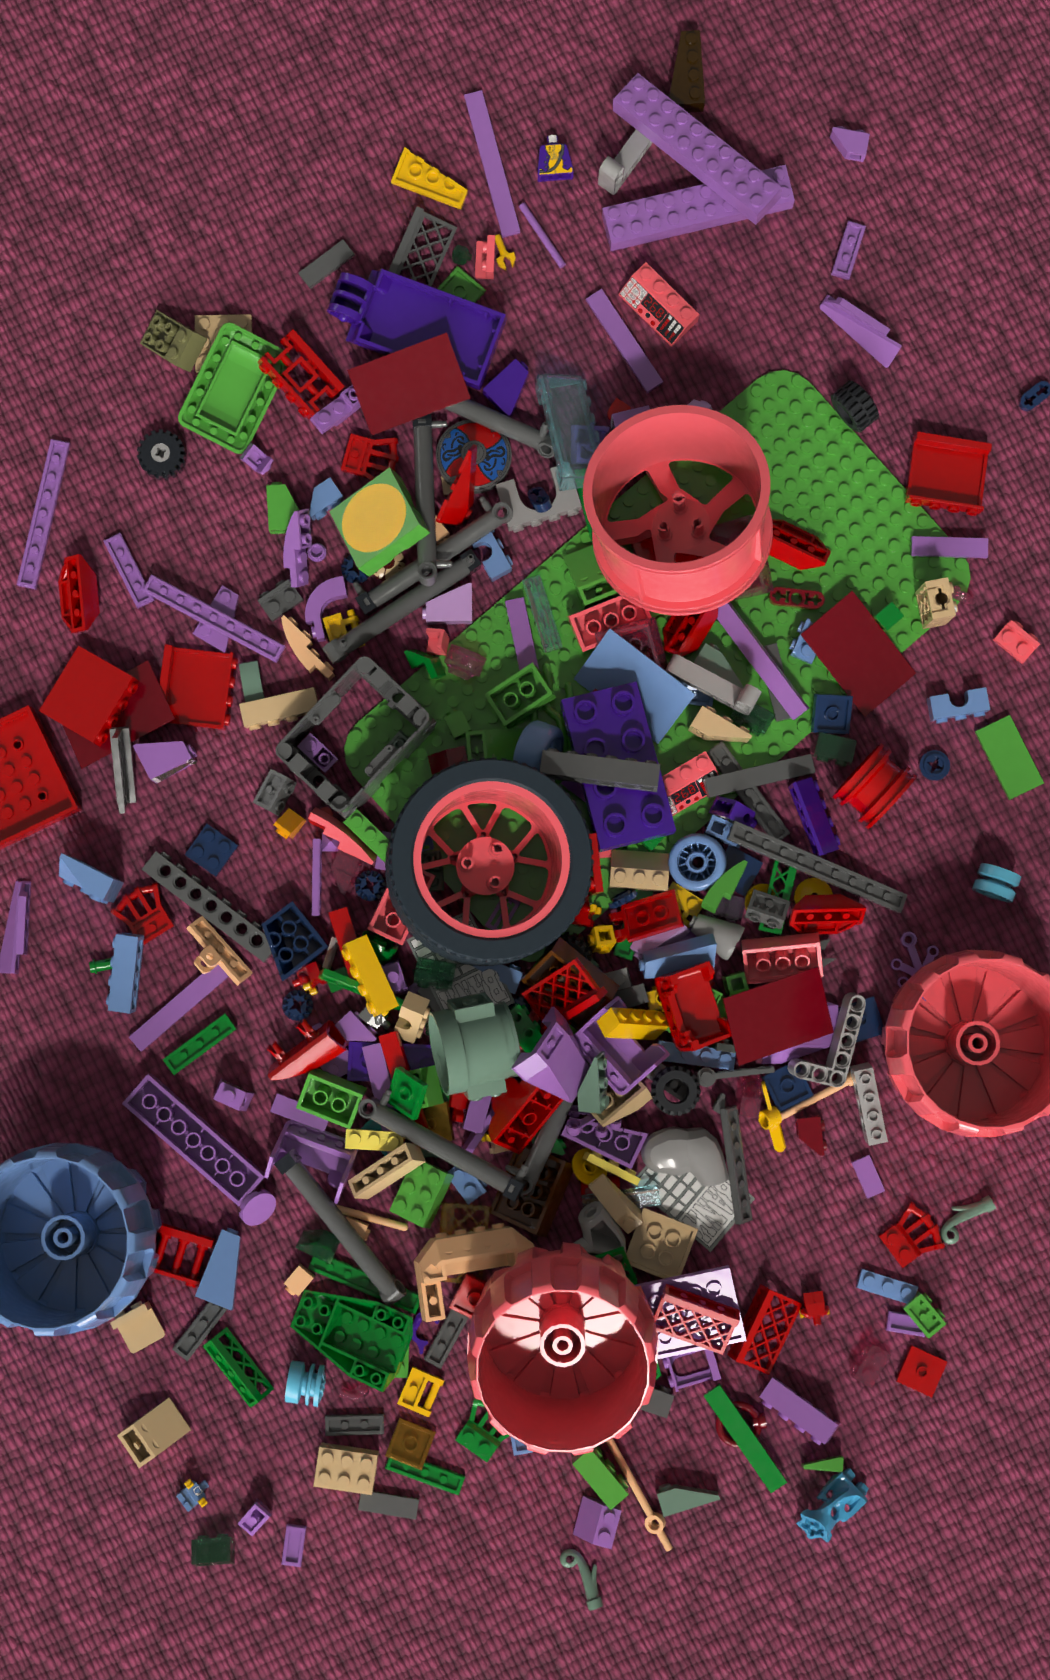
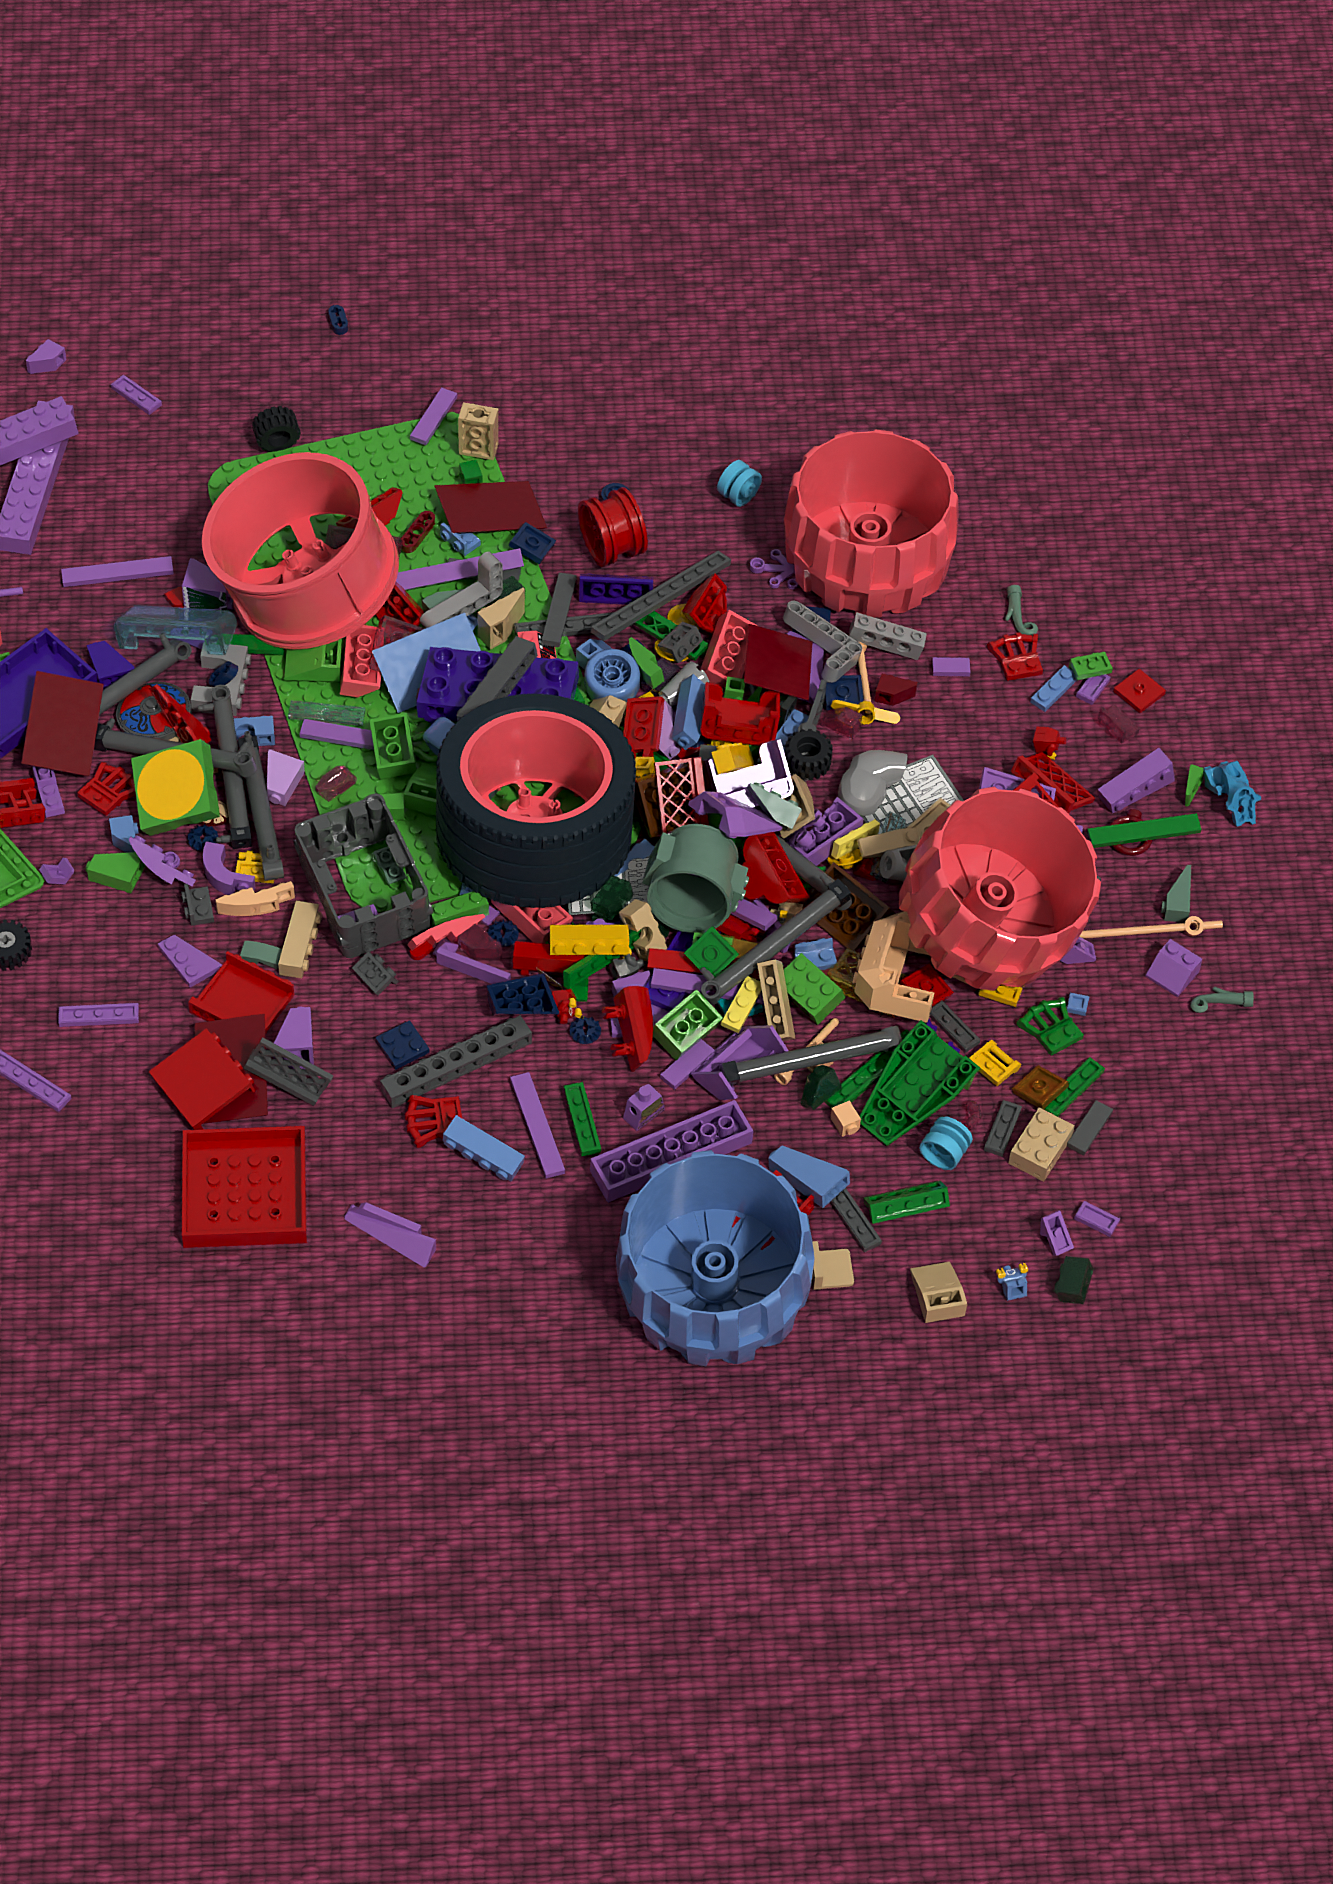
camera: 70 degrees left, 30 degrees down
(78, 594) = (97, 1059): red wedge -> none
(92, 881) = (377, 1138): medium blue slope -> none
(100, 965) = (463, 1176): green pin -> none
(214, 618) = (185, 957): medium lavender tile -> none
(217, 952) = (503, 1072): light nougat plate -> none
(257, 1207) = (760, 1120): medium lavender tile -> none
(289, 824) = (413, 969): light orange slope -> none
(418, 659) = (323, 805): green slope -> none
(437, 642) = (307, 796): coral panel -> none
(446, 758) = (421, 824): dark red slope -> none
(601, 1477) = (1130, 945): bright green brick -> none
(659, 304) = (101, 533): coral slope -> none
(719, 1103) = (839, 744): dark grey slope -> none
(736, 1164) = (888, 746): dark grey tile -> none
(737, 813) = (577, 635): dark purple torso -> none
(834, 749) = (563, 552): clear green brick -> none
(862, 328) = (210, 407): medium lavender wedge -> none
(942, 709) = (569, 470): medium blue arch -> none
(947, 473) = (368, 395): red panel -> none
(1009, 757) = (636, 444): bright green tile -> none
(1016, 641) = (539, 403): coral bracket -> none

